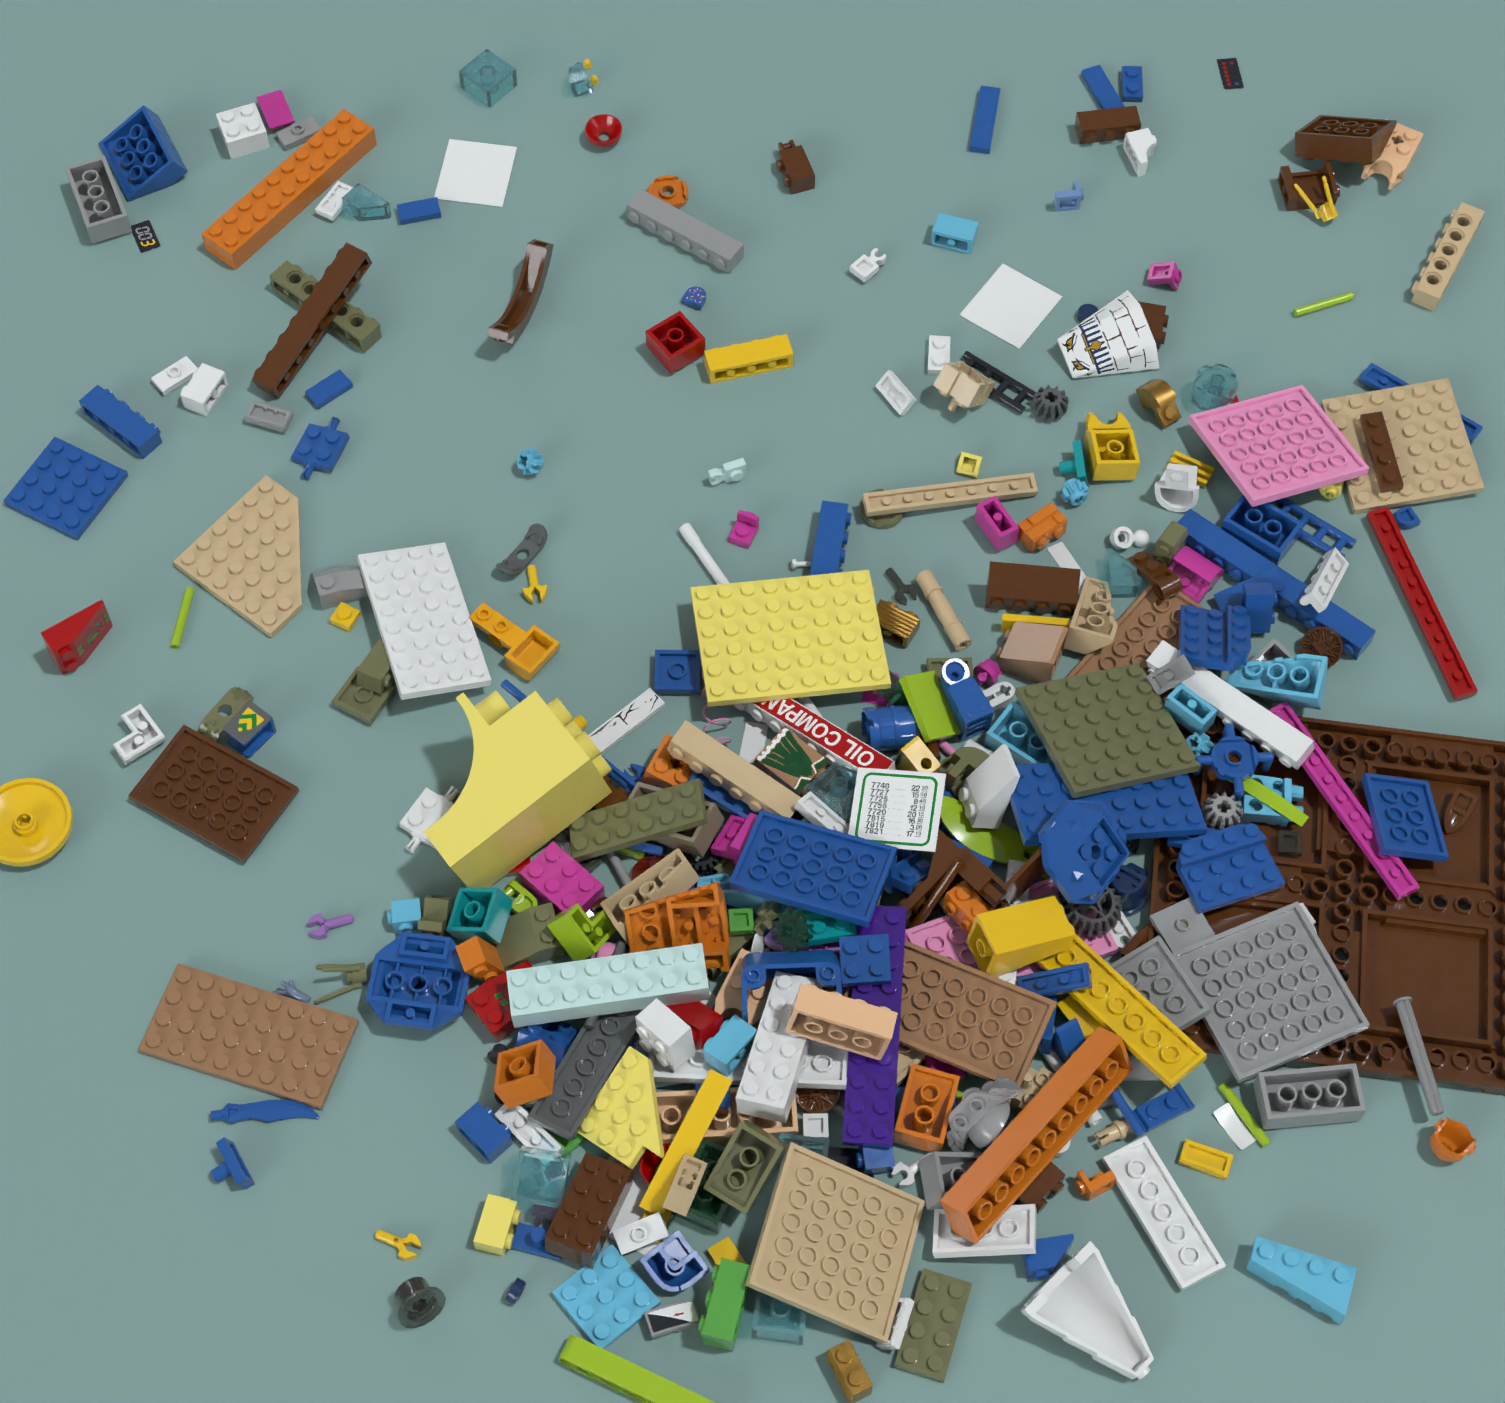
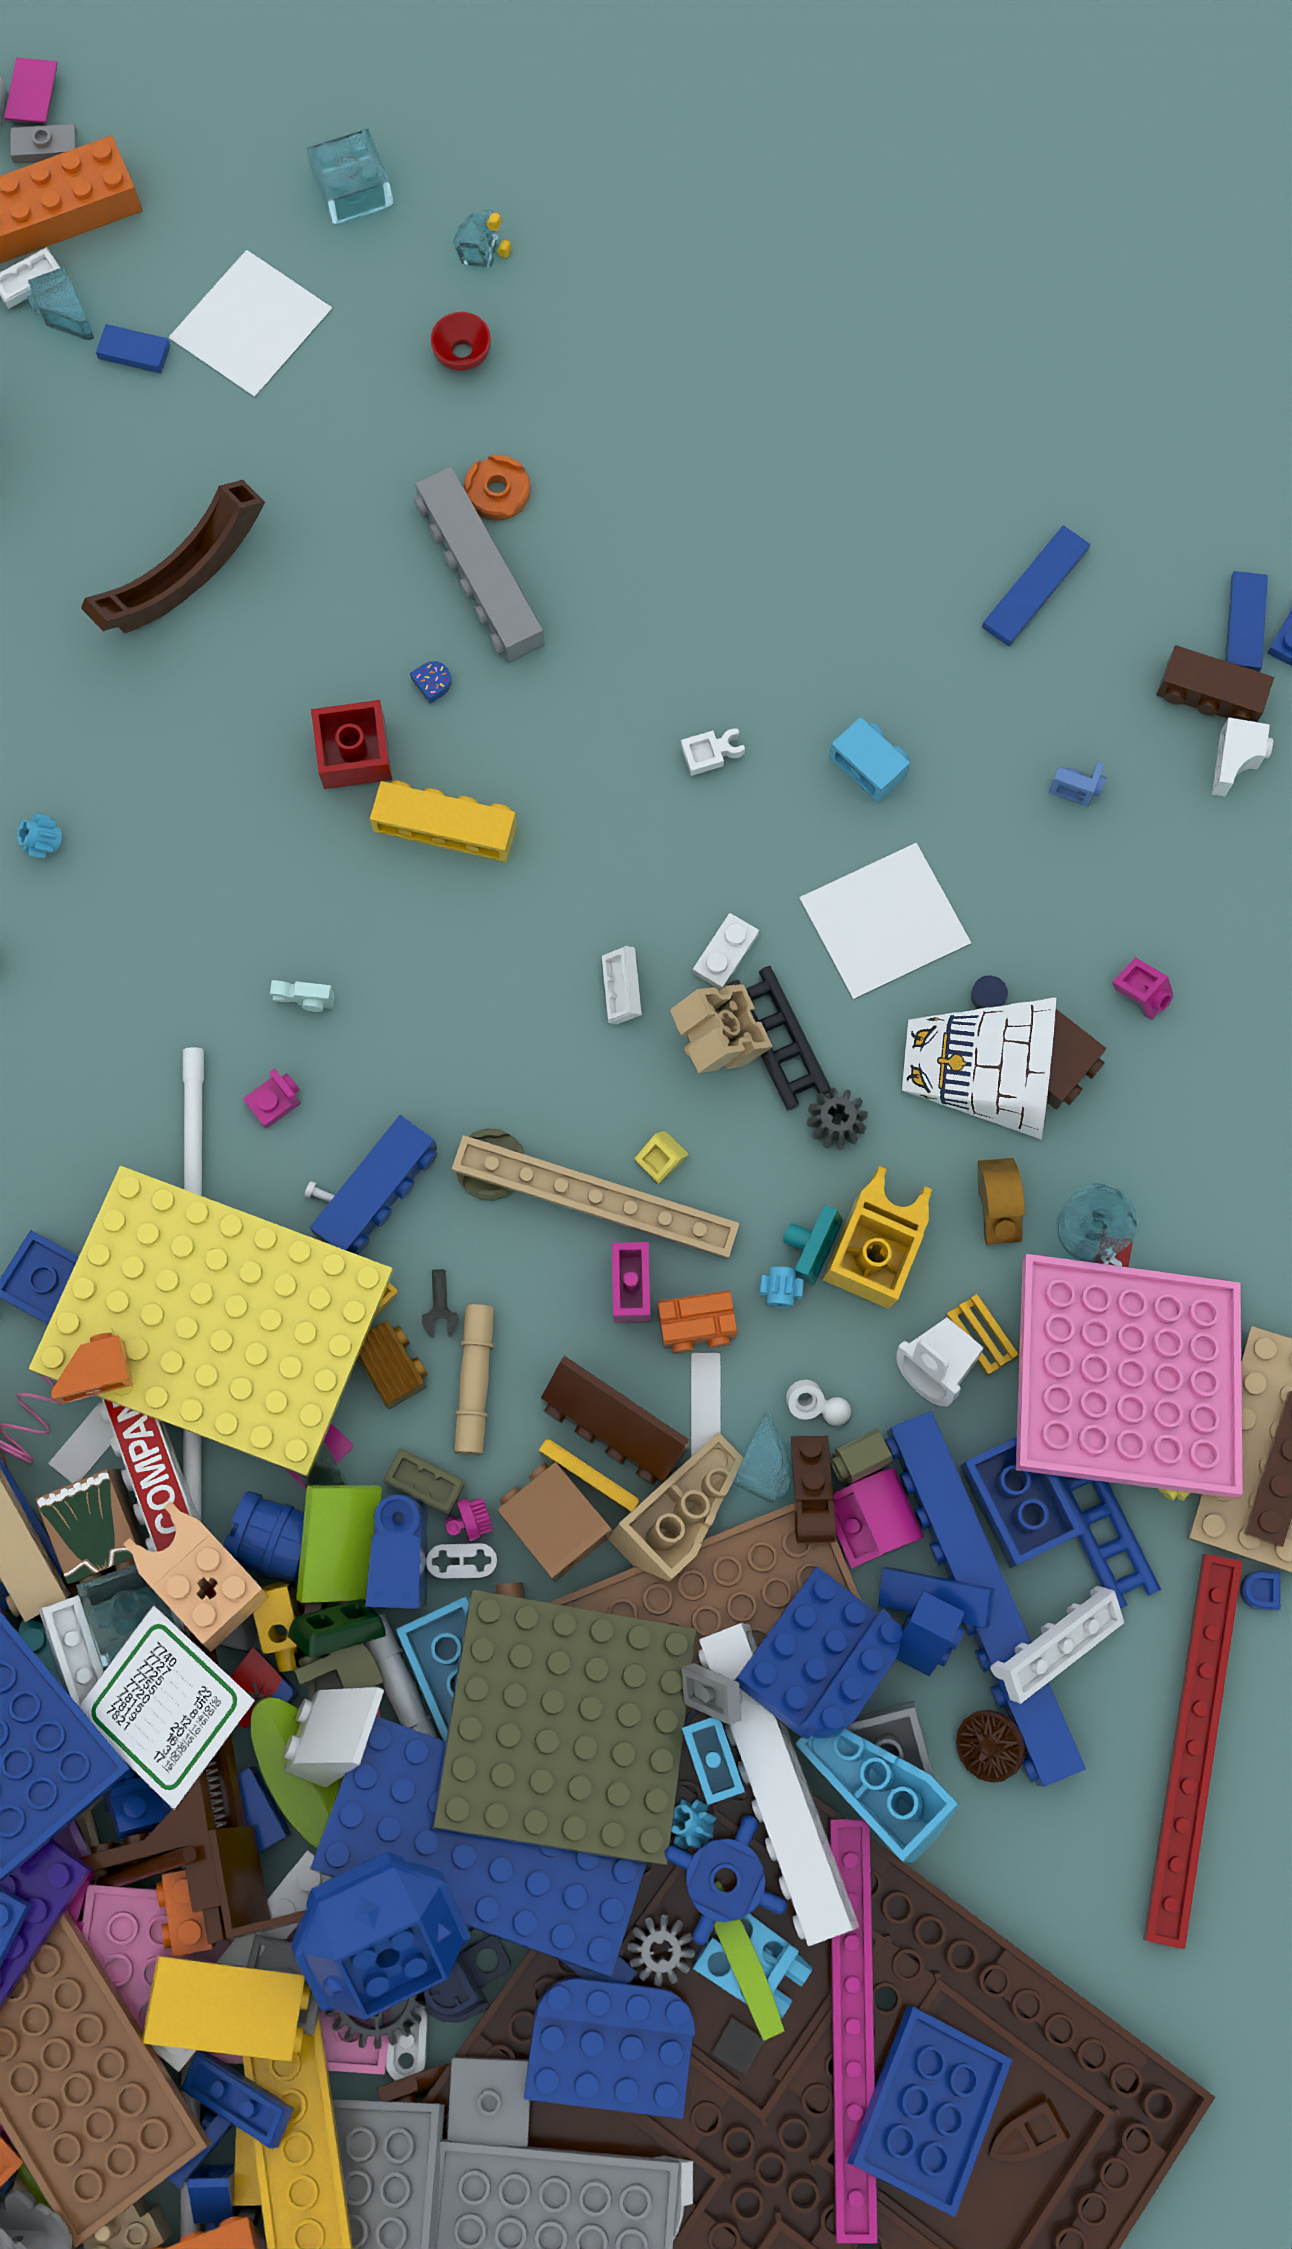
camera: 30 degrees right, 15 degrees up
(750, 678) = (94, 1370): none -> orange slope
(795, 168) = (701, 534): reddish brown brick -> none
(869, 744) = (191, 1567): none -> light nougat brick
(955, 743) = (343, 1632): none -> dark green piece

